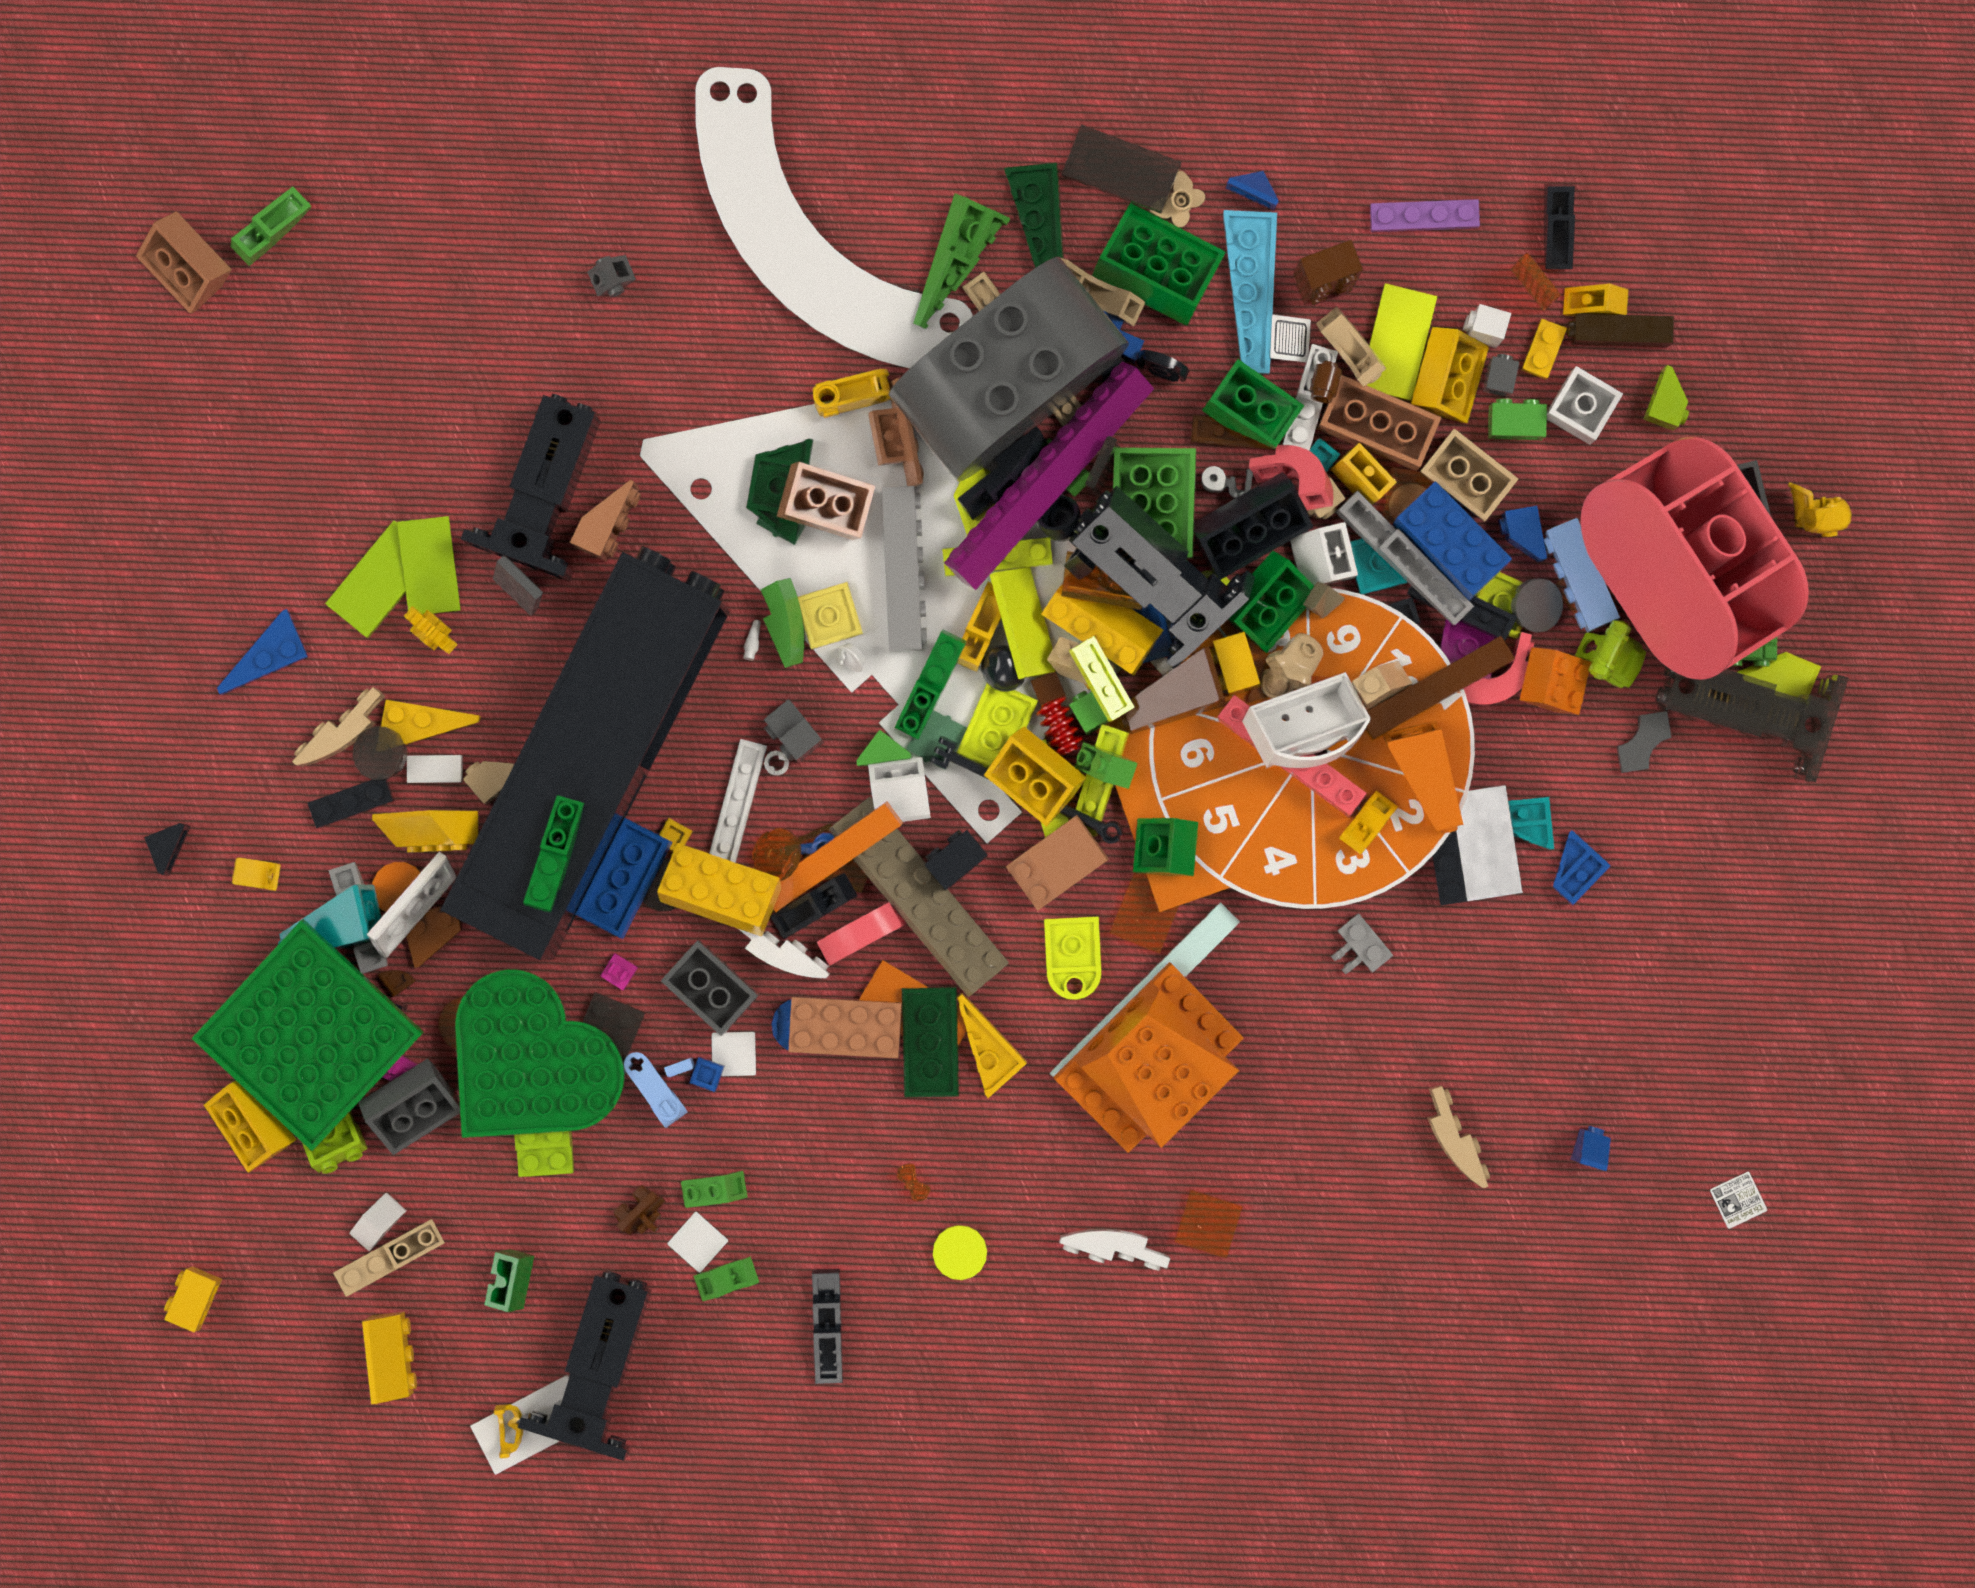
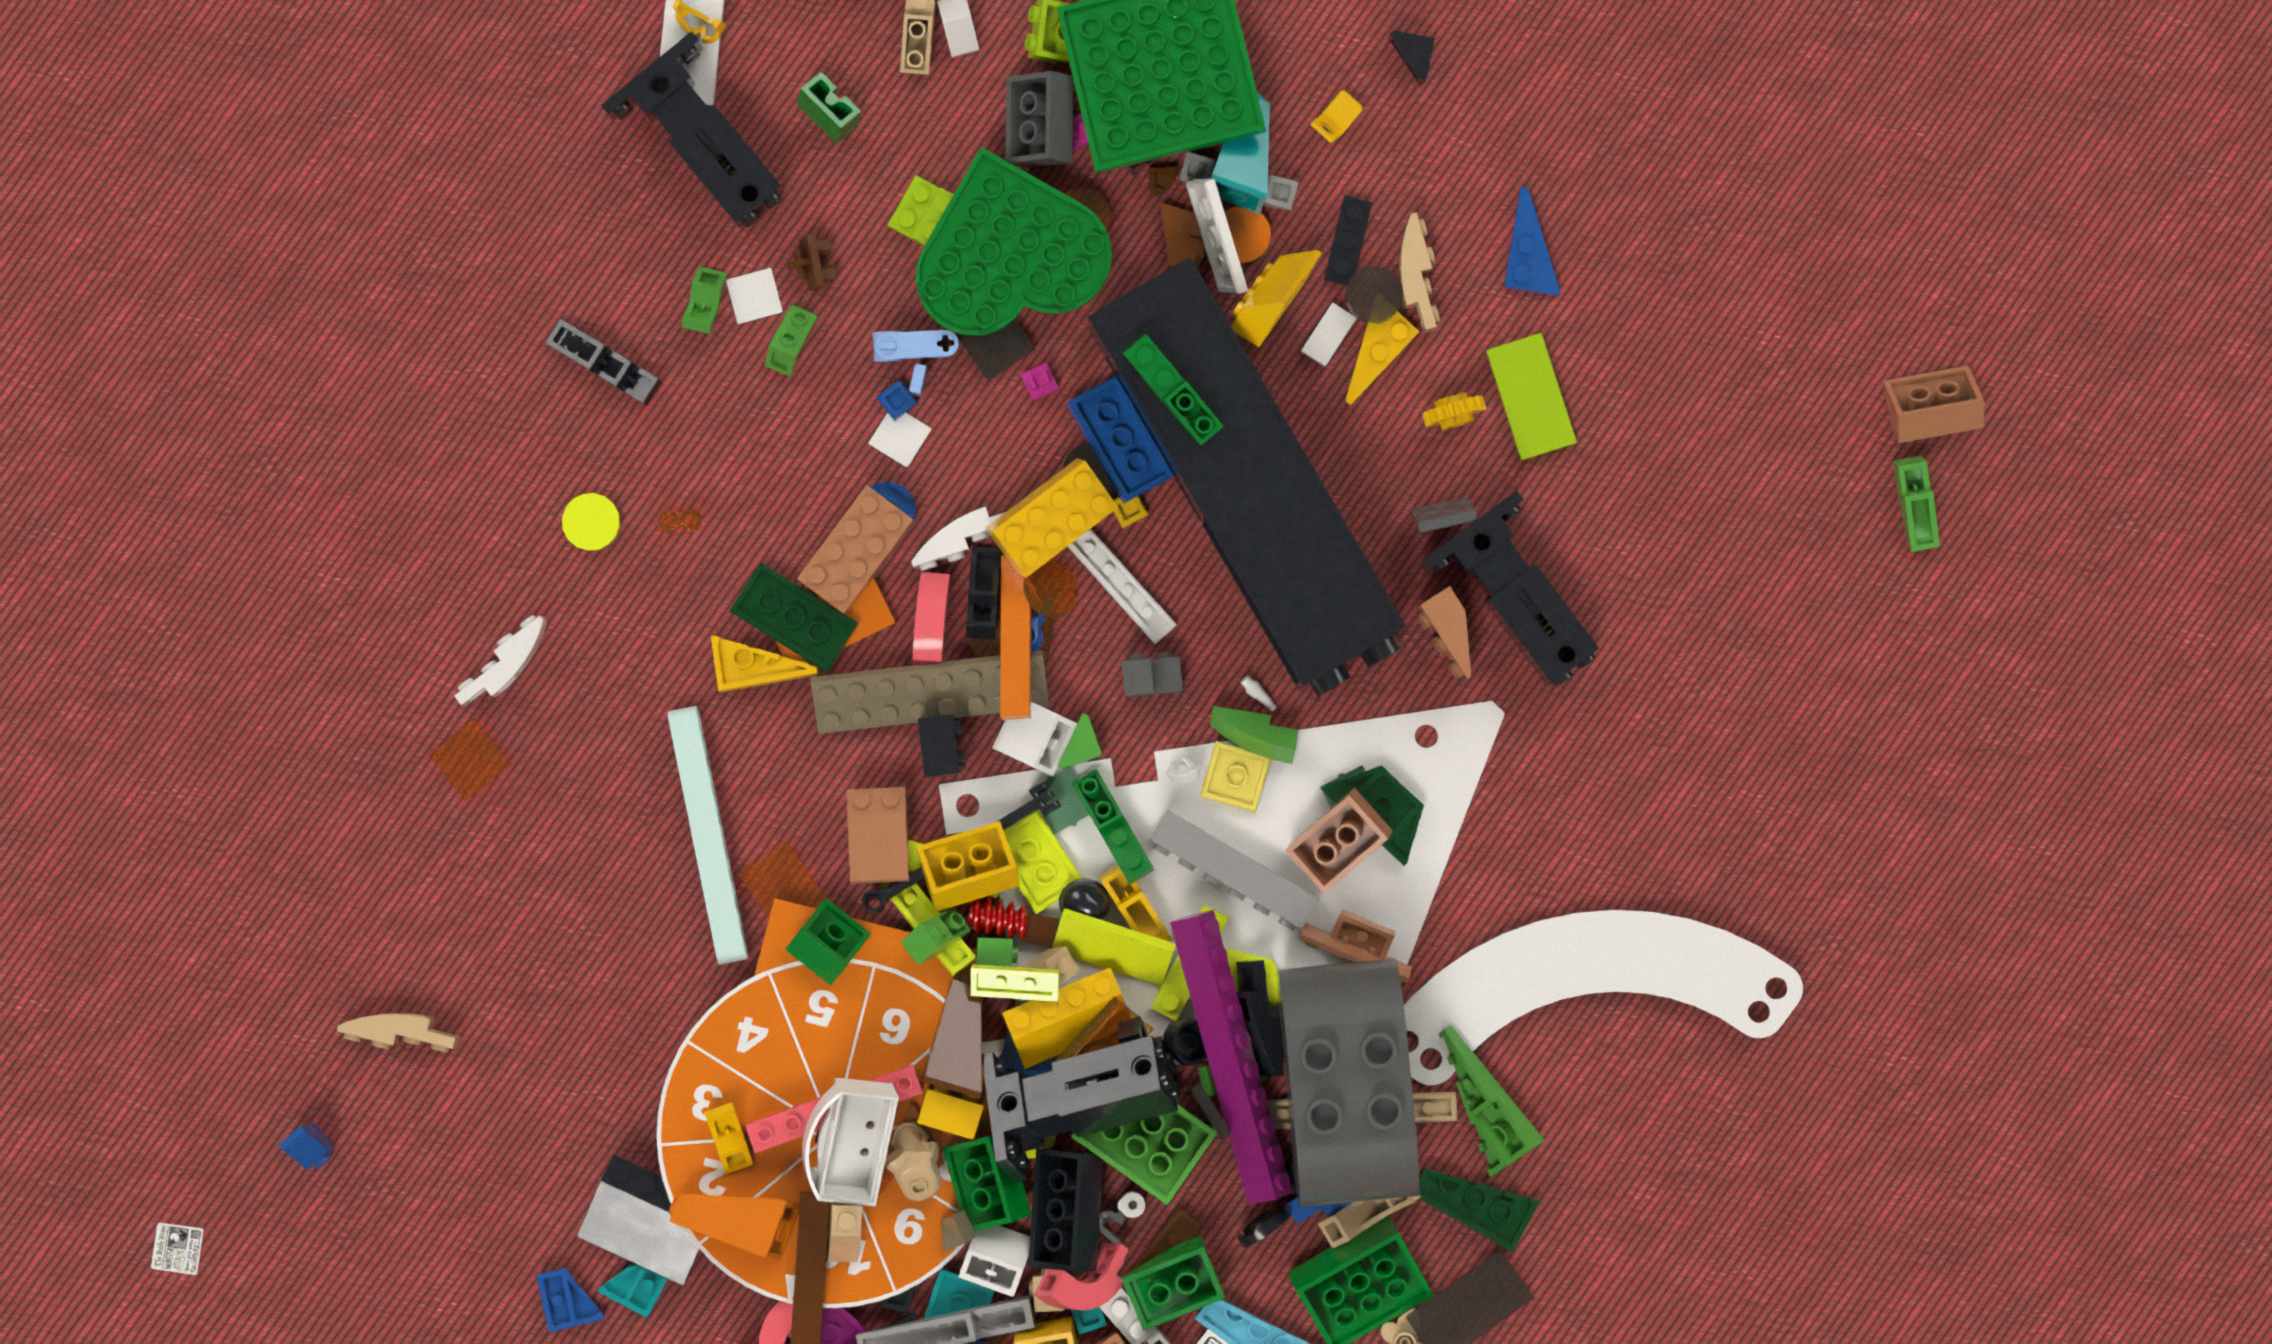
camera: 125 degrees right, 0 degrees up
(429, 565) = (1515, 447): lime sticker -> none
(487, 779) = (1286, 378): tan slope -> none
(611, 275) = (1671, 780): dark grey brick -> none
(710, 987) = (970, 453): dark grey brick -> none
(771, 769) = (1131, 634): white bush -> none
(852, 392) = (1423, 929): yellow piece -> none
(1073, 953) = (789, 797): neon yellow tile -> none
(1153, 1062) = (643, 804): orange wedge -> none
(1364, 943) = (628, 1063): light grey hinge -> none

